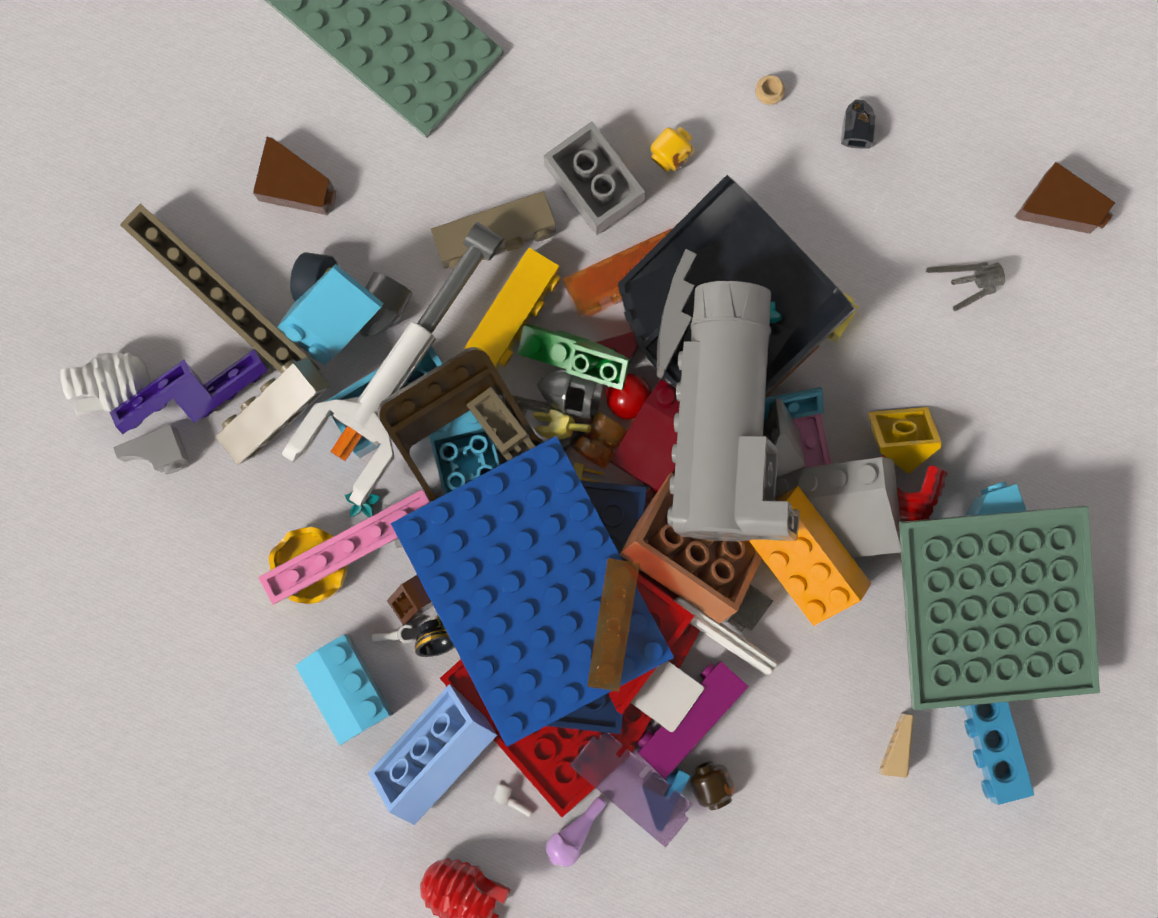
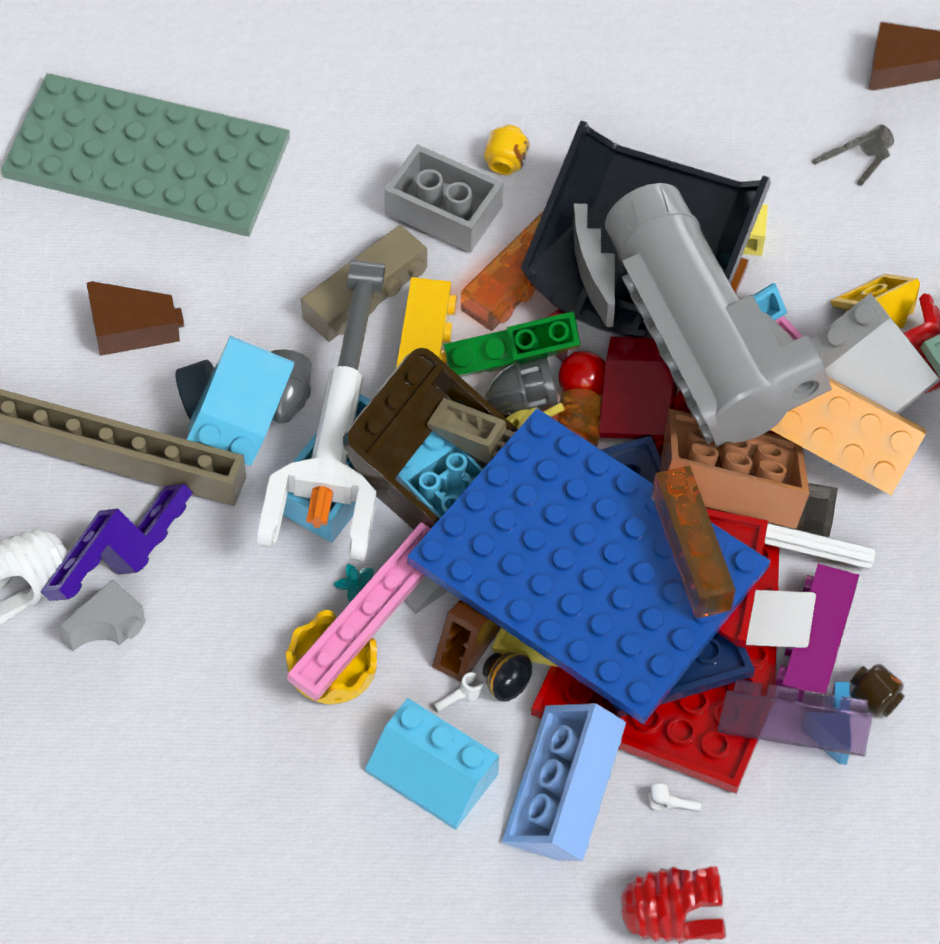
camera: 30 degrees left, 25 degrees down
(272, 410) = (220, 517): brick -> none
(566, 845) = (756, 815): lavender piece -> none
(770, 90) = (573, 69): tan plate -> none
(858, 125) = (677, 68): black rock -> none

